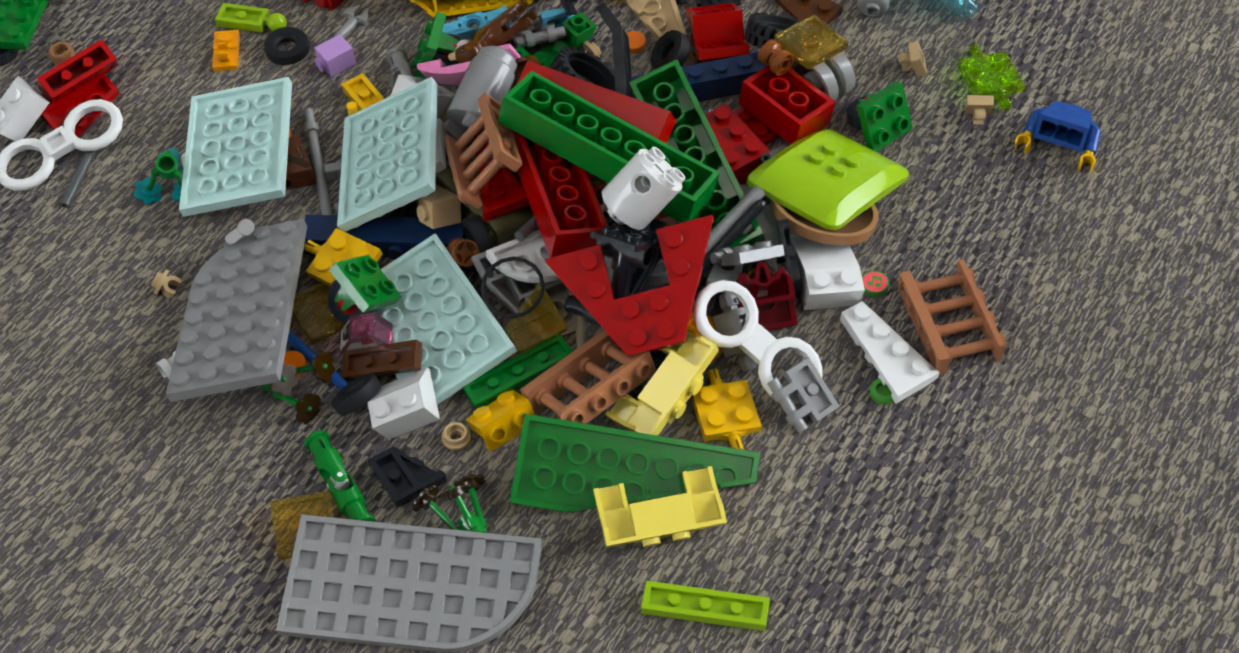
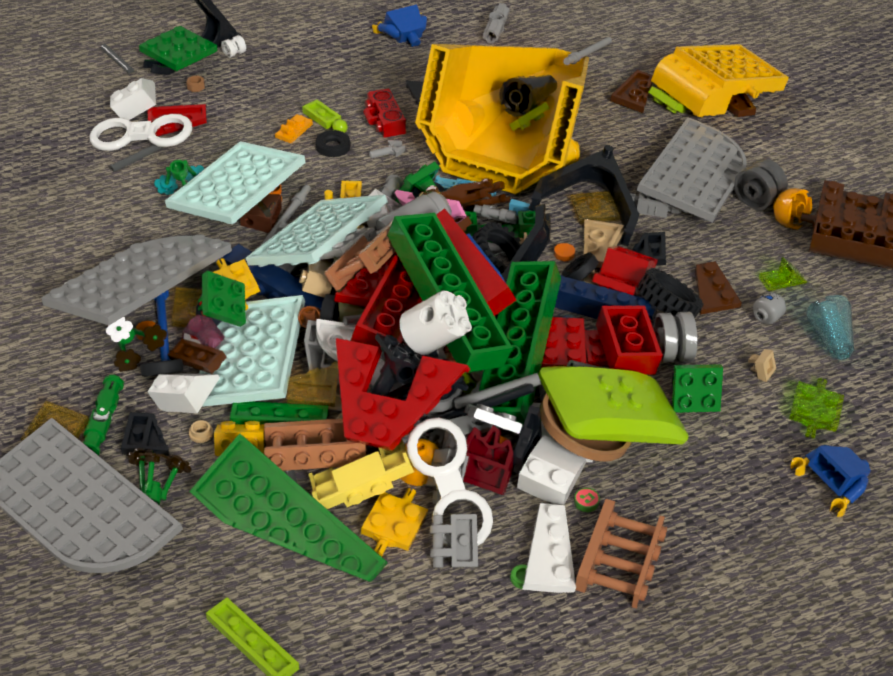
camera: 30 degrees right, 10 degrees down
(76, 71) = (188, 94): red piece -> none
(162, 281) = (119, 239): tan plate -> none
(244, 228) = (183, 230): light grey piece -> none
(334, 56) = (354, 163): lavender brick -> none
(507, 260) = (297, 340): black piece -> none
(661, 517) = (278, 562): light yellow bracket -> none
(775, 57) = (638, 300): dark orange wheel -> none
(811, 41) = (675, 303): clear yellow plate -> none
(979, 106) = (783, 422): tan tile -> none

